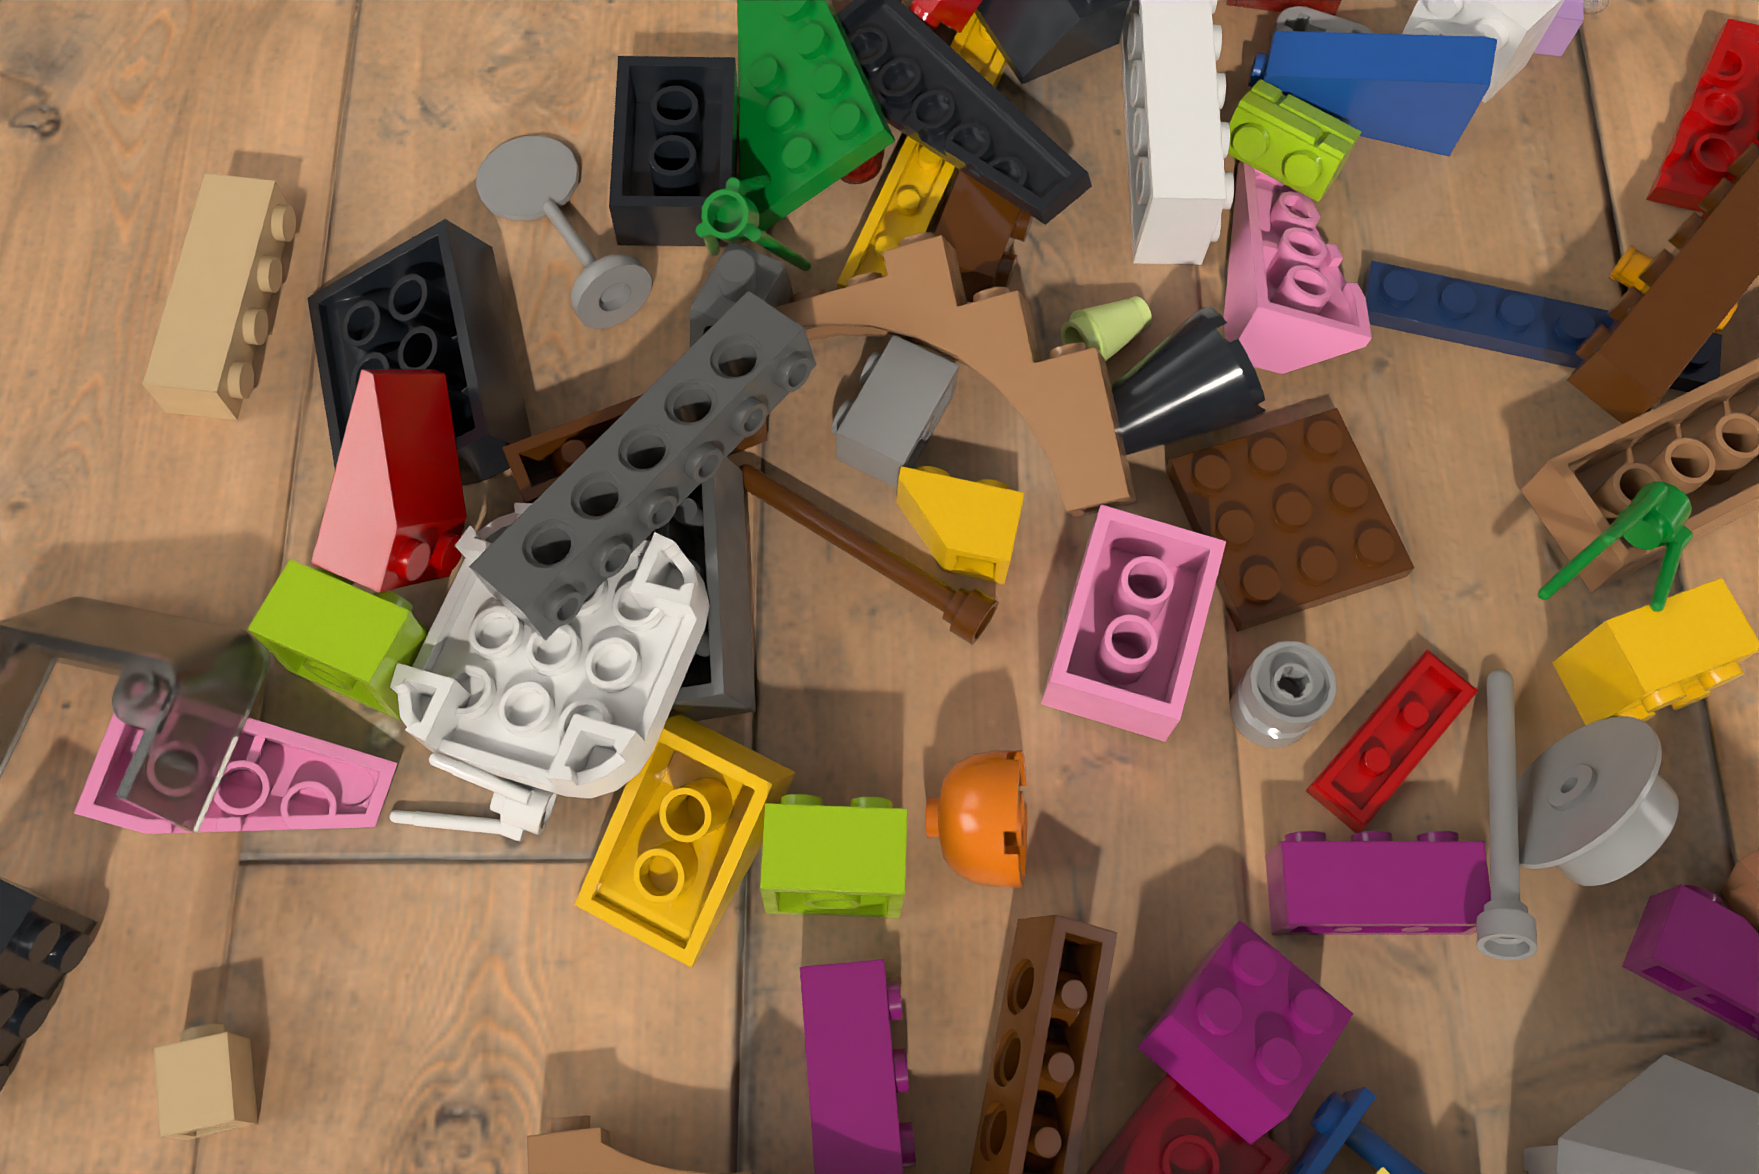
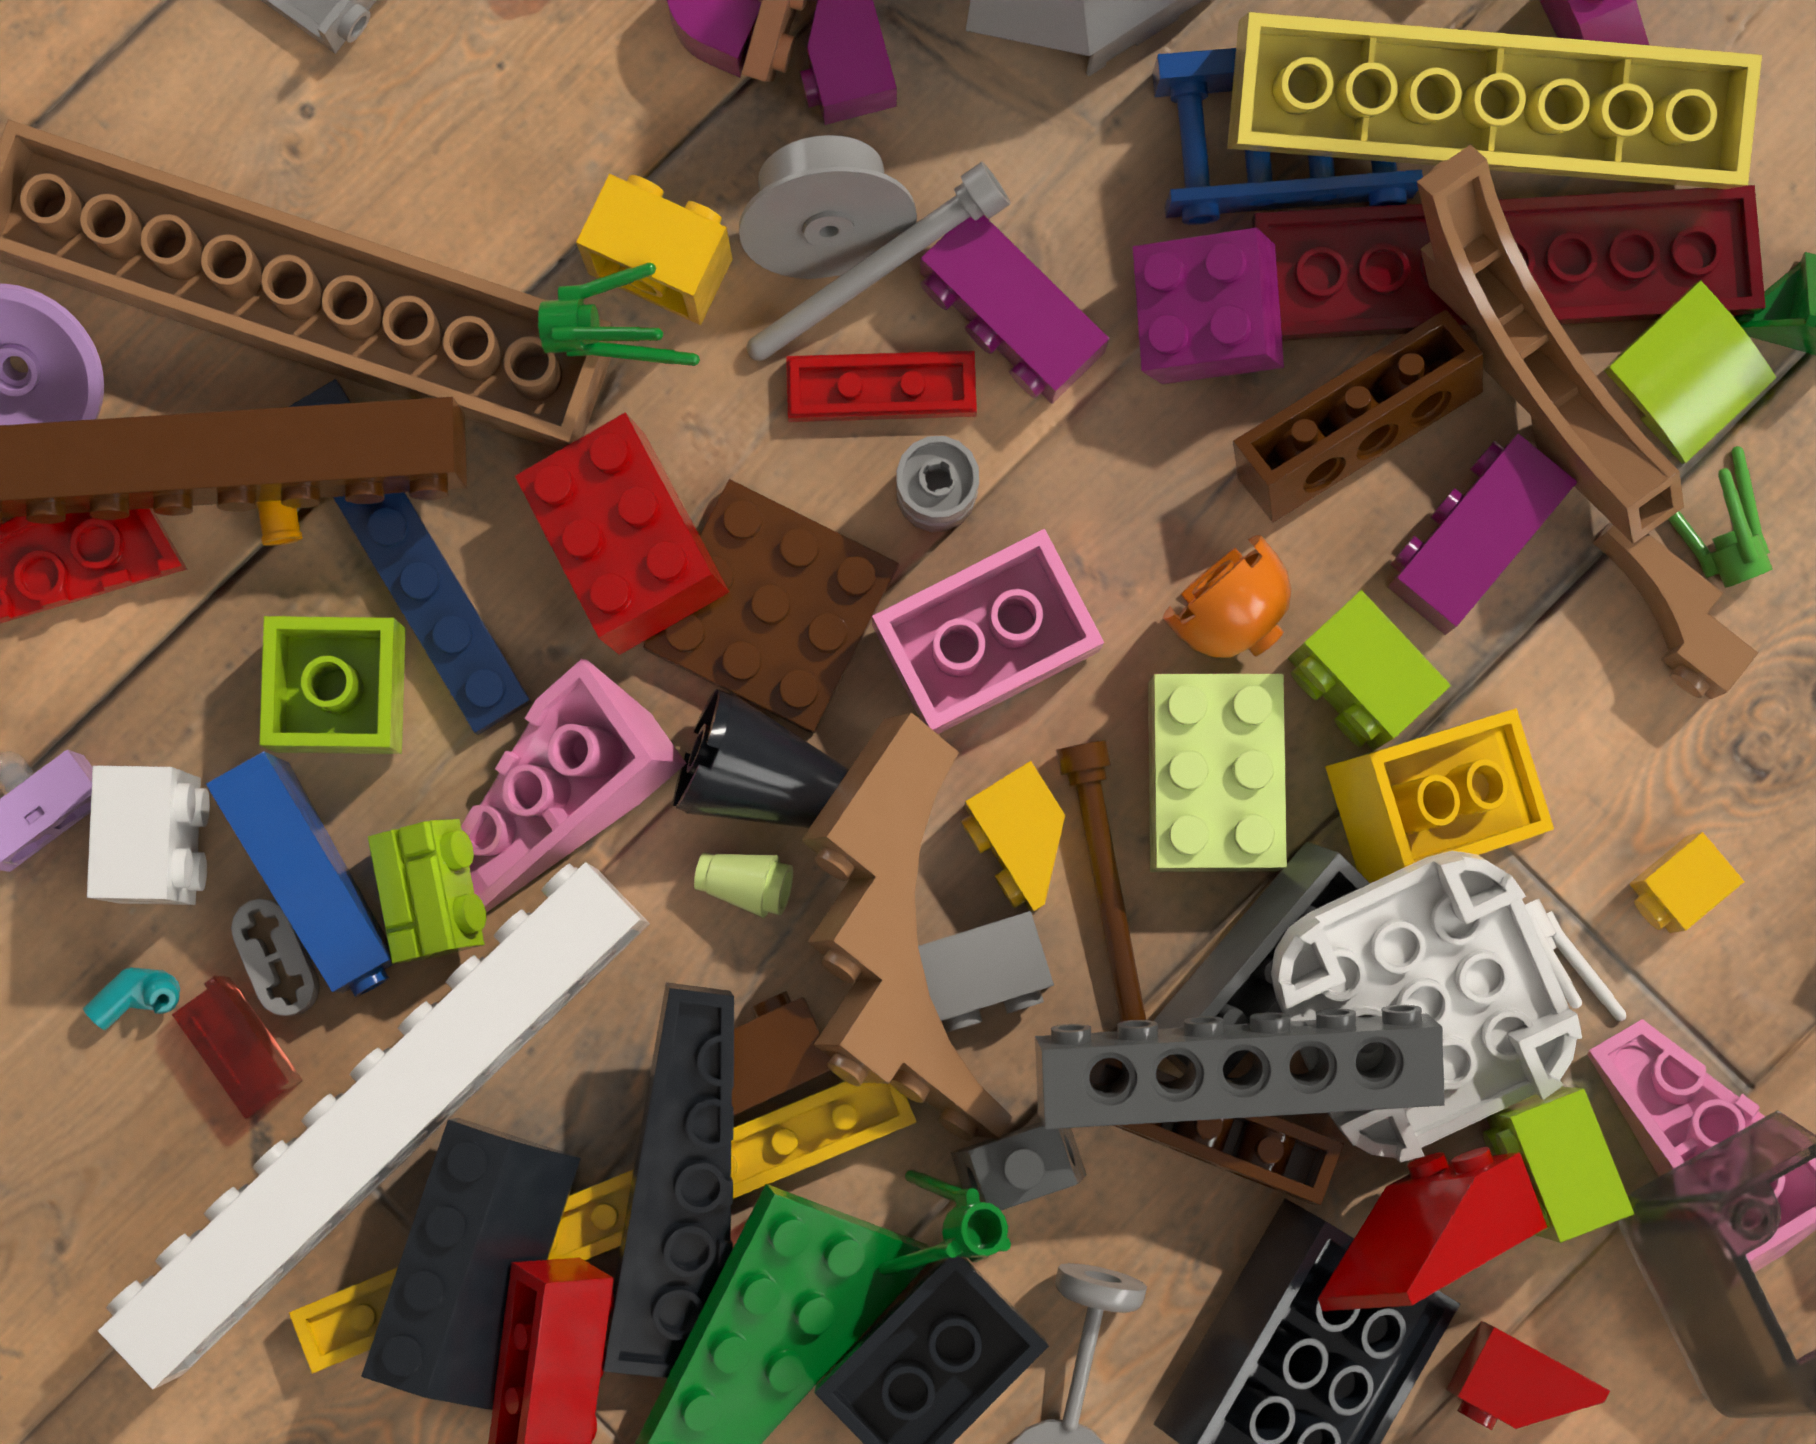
camera: 135 degrees left, 15 degrees up
(244, 489) = (1517, 1383): none -> red slope
(428, 953) = (1684, 884): none -> yellow brick
(870, 688) = (1217, 773): none -> yellowish green brick
(1441, 448) = (621, 534): none -> red brick
(1488, 196) = (332, 685): none -> lime brick

